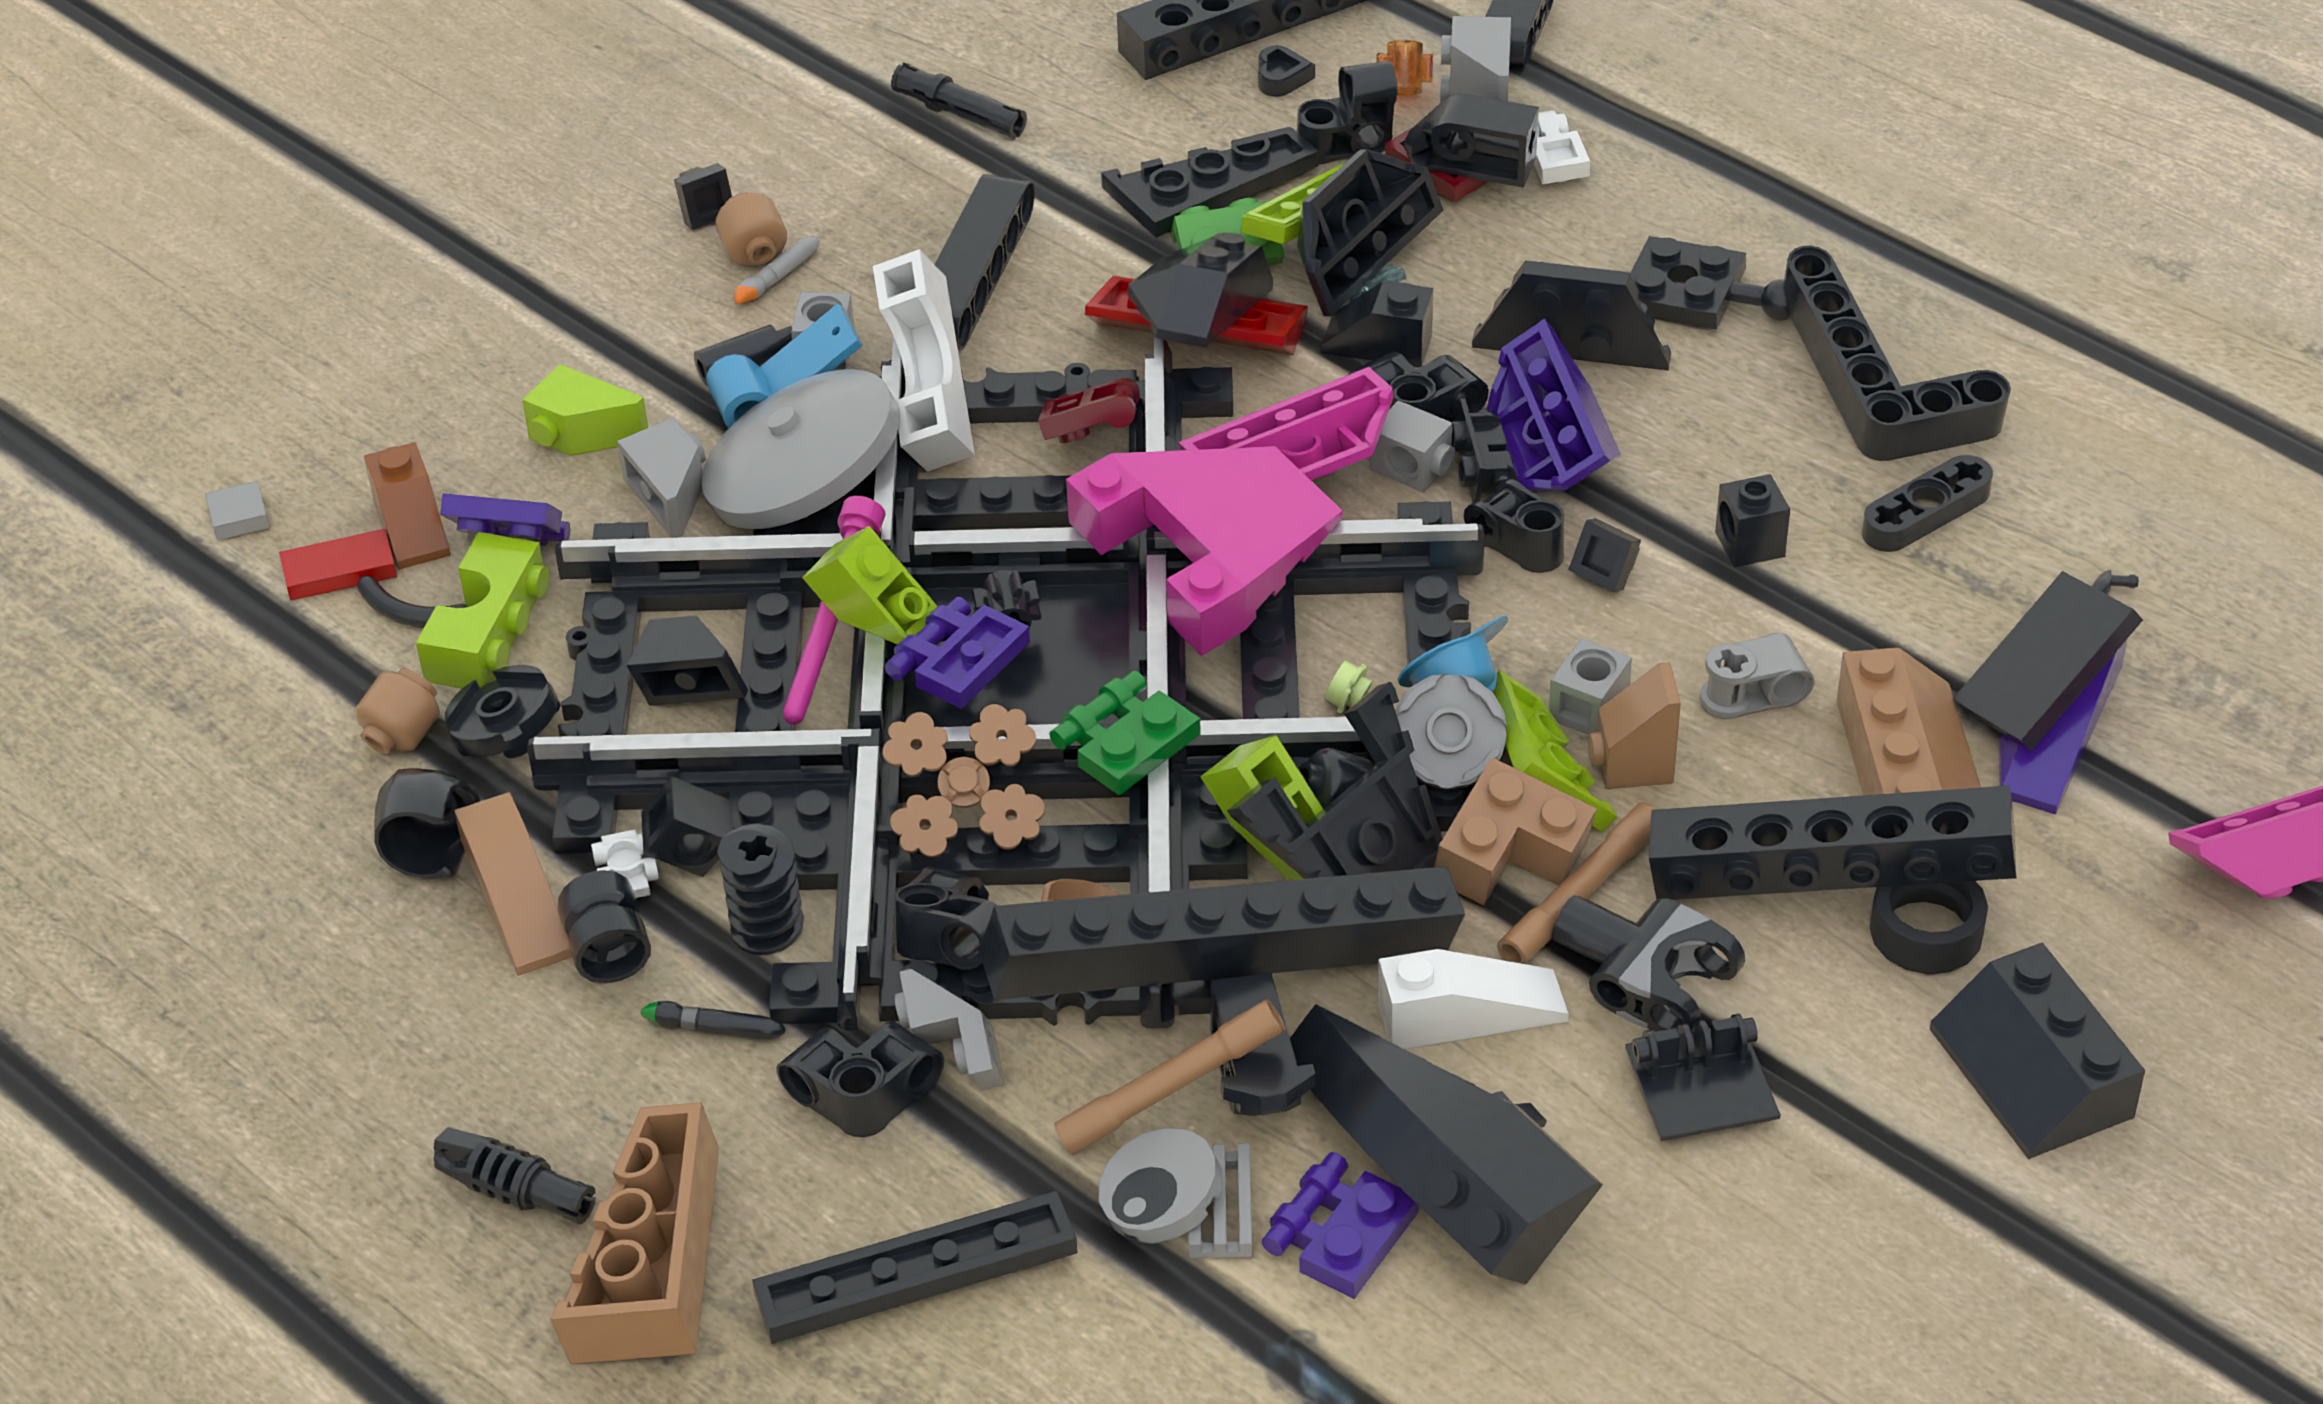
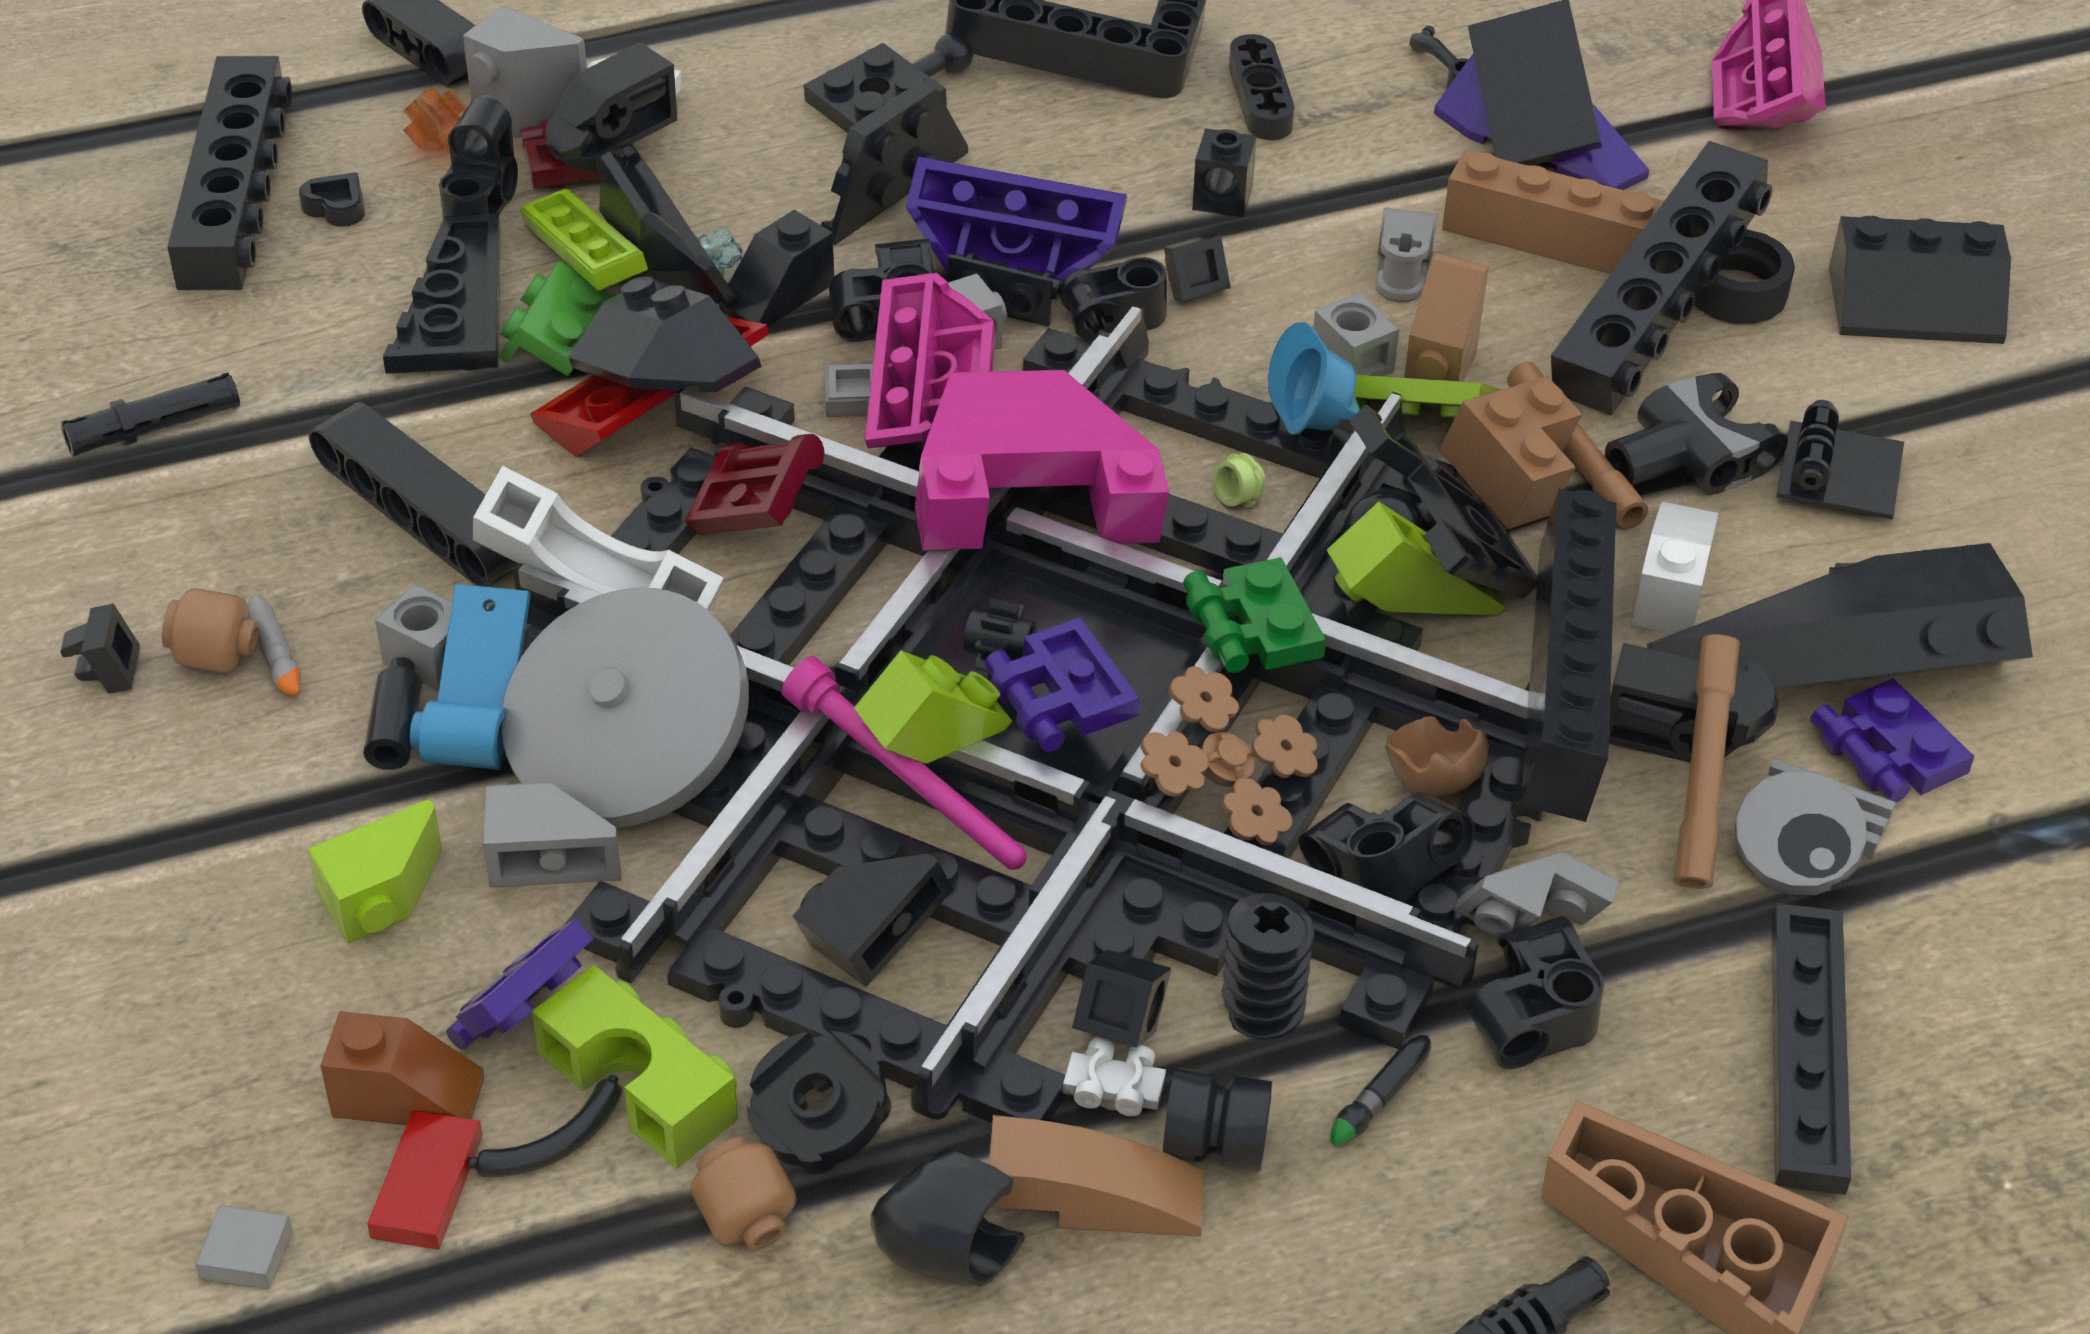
camera: 65 degrees left, 0 degrees up
(1452, 728) = (1401, 409): light grey tile -> none

